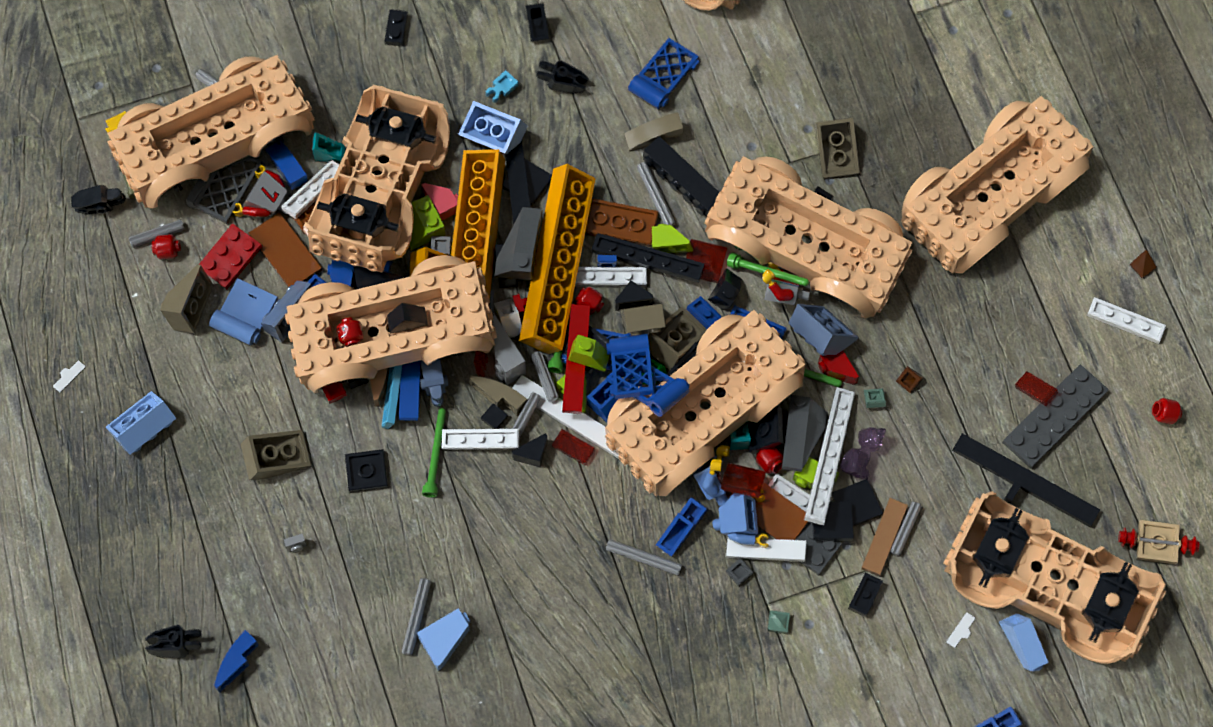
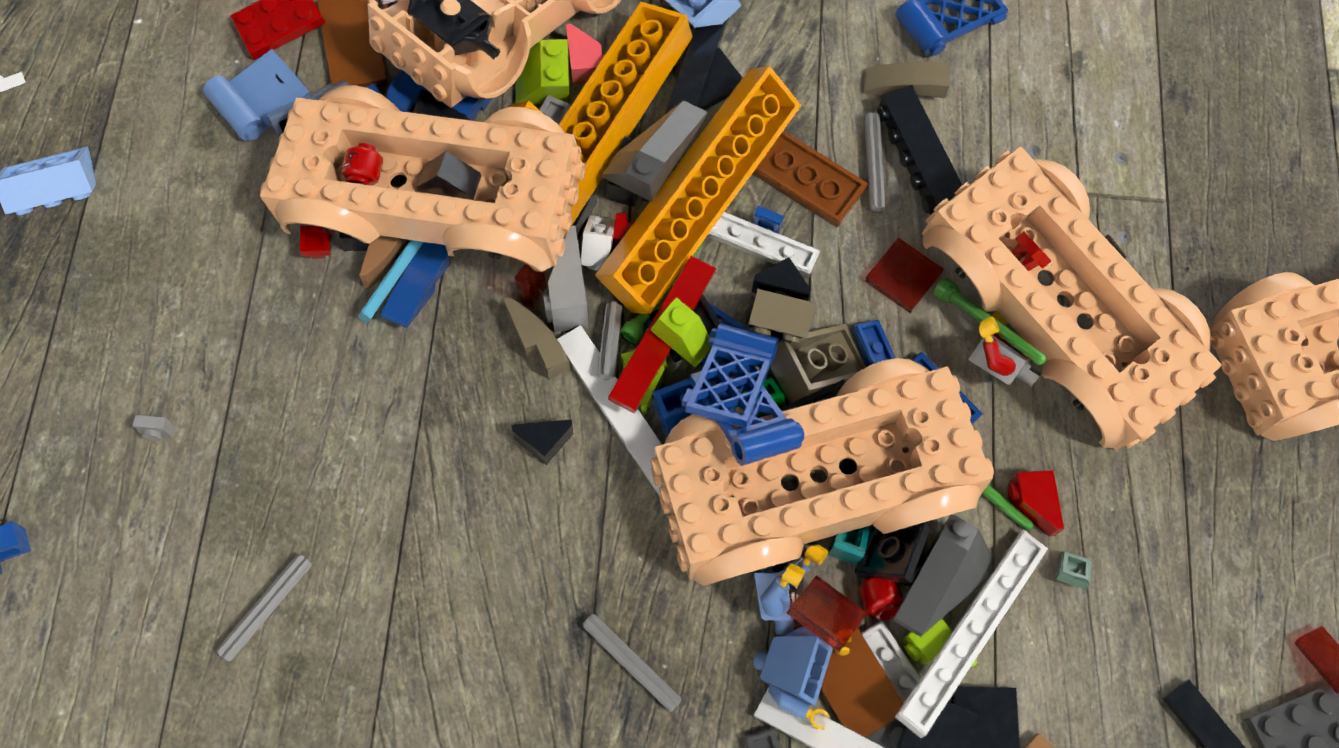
camera: 20 degrees right, 0 degrees up
(187, 300) = (189, 47): dark tan slope -> none
(274, 454) = (195, 293): dark tan slope -> none
(366, 471) = (305, 368): black tile -> none
(430, 488) = (377, 430): bright green piece -> none
(434, 381) = (456, 282): sand blue hinge -> none
(444, 636) = (284, 656): light blue slope -> none
(480, 439) = (480, 390): white tile -> none
(494, 416) = (515, 367): black tile -> none
(527, 412) = (553, 387): light grey axle -> none
(573, 447) = (605, 456): clear red tile -> none
(590, 297) = (724, 259): red head -> none
(649, 257) = (829, 239): black plate -> none
(669, 240) = (866, 226): lime slope -> none
(682, 526) = (707, 641): blue slope -> none
(726, 290) = (917, 326): black slope -> none
(774, 217) = (1031, 251): none -> red tile
(821, 329) = (1035, 437): sand blue slope -> none
(837, 147) = (1154, 195): dark tan slope -> none
(857, 460) = (1013, 654): clear purple animal -> none
(909, 379) = (1136, 563): reddish brown slope -> none

